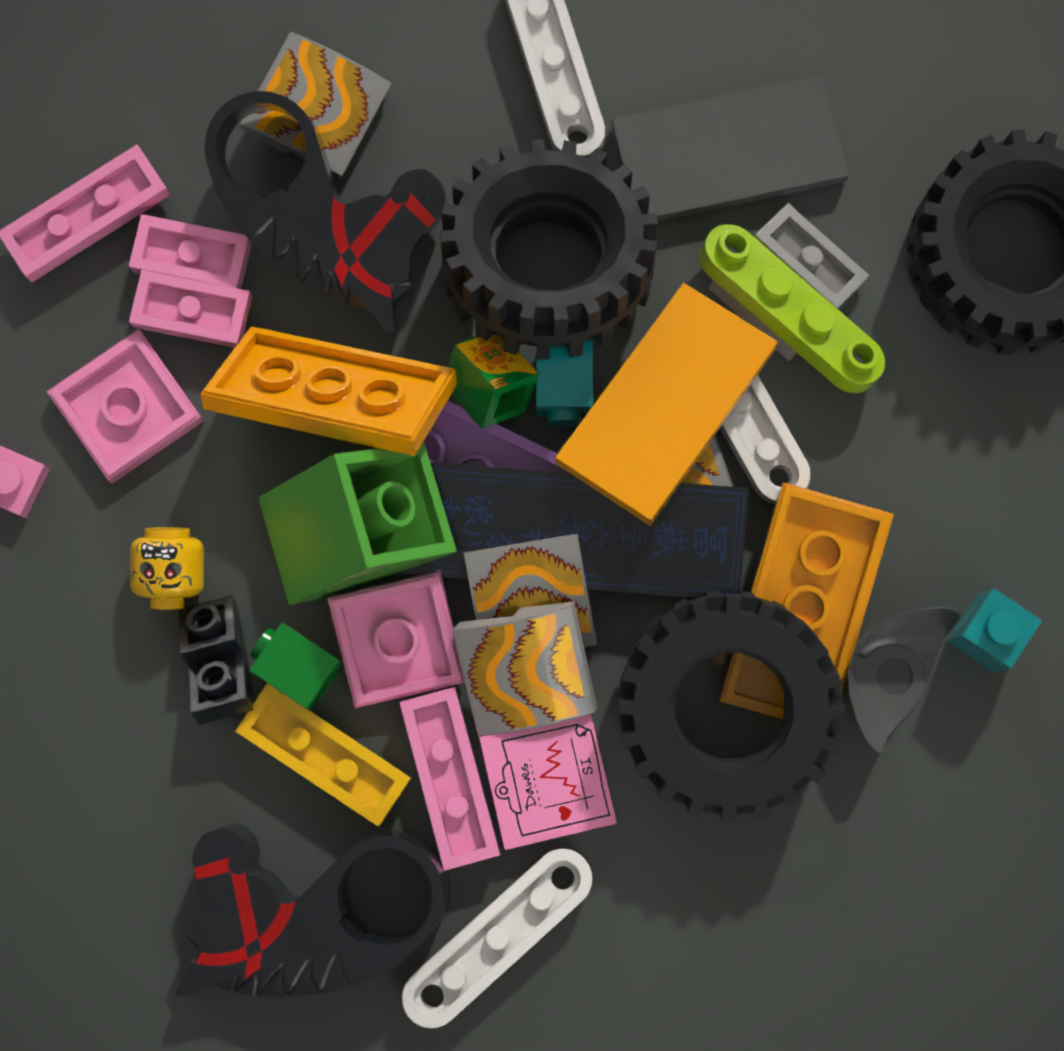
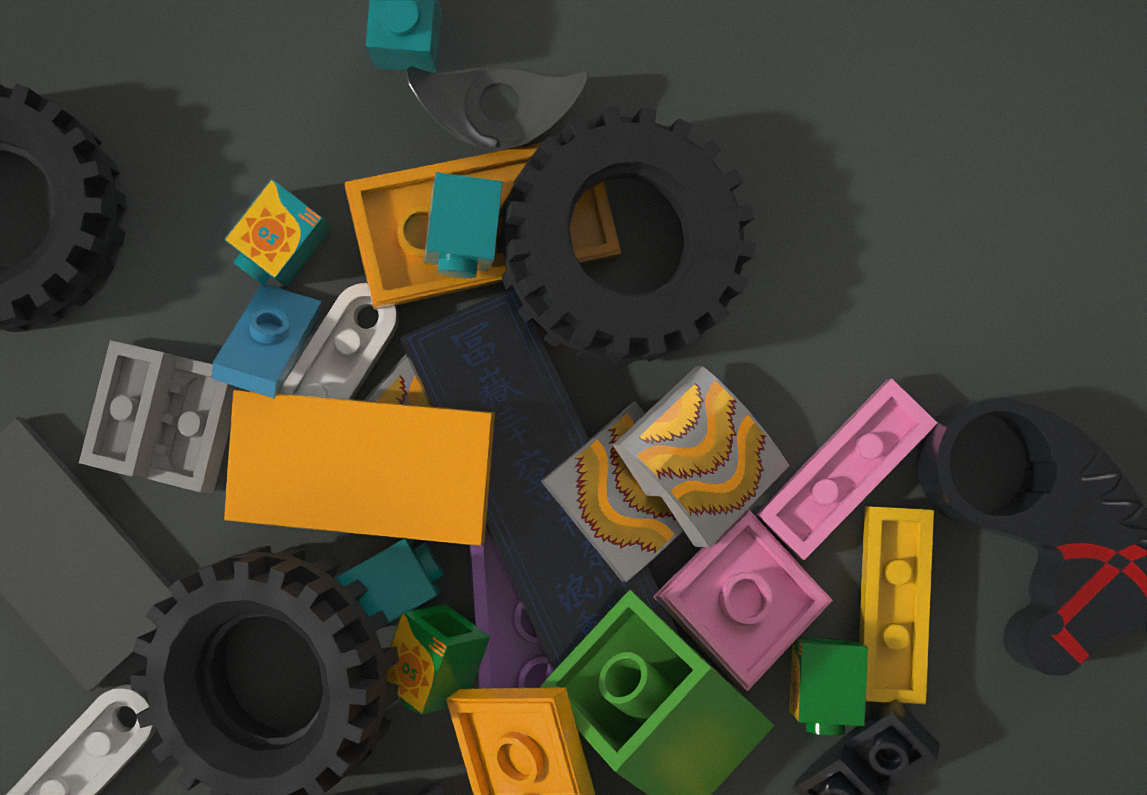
camera: 120 degrees left, 5 degrees up
(496, 938) = (967, 337): white plate -> none
(547, 781) = (794, 373): bright pink tile -> none
(791, 308) = (186, 401): lime plate -> none
(803, 389) = (266, 340): none -> dark azure plate
(809, 581) = (462, 224): none -> teal brick
(881, 442) = (276, 235): none -> brick

